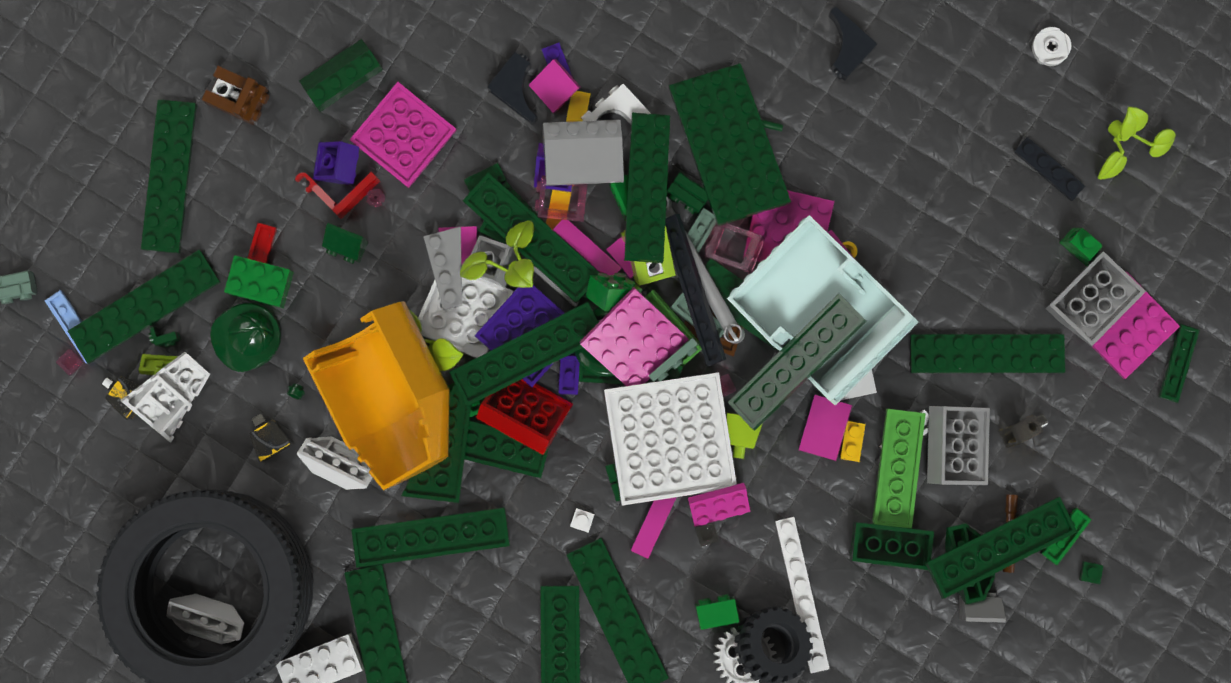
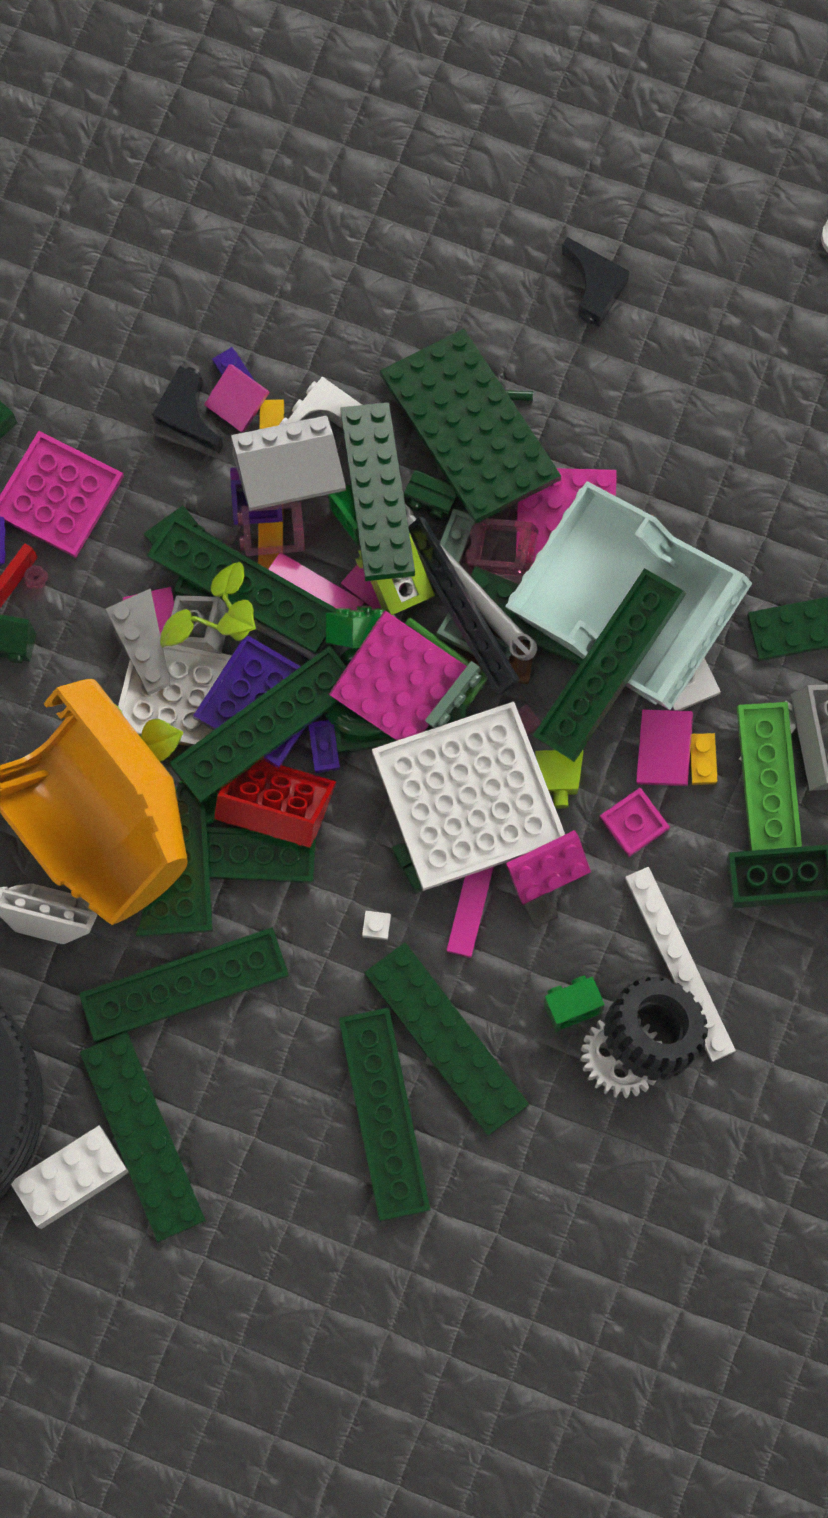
camera: 10 degrees left, 10 degrees down
(790, 479) = (634, 822): none -> dark pink tile

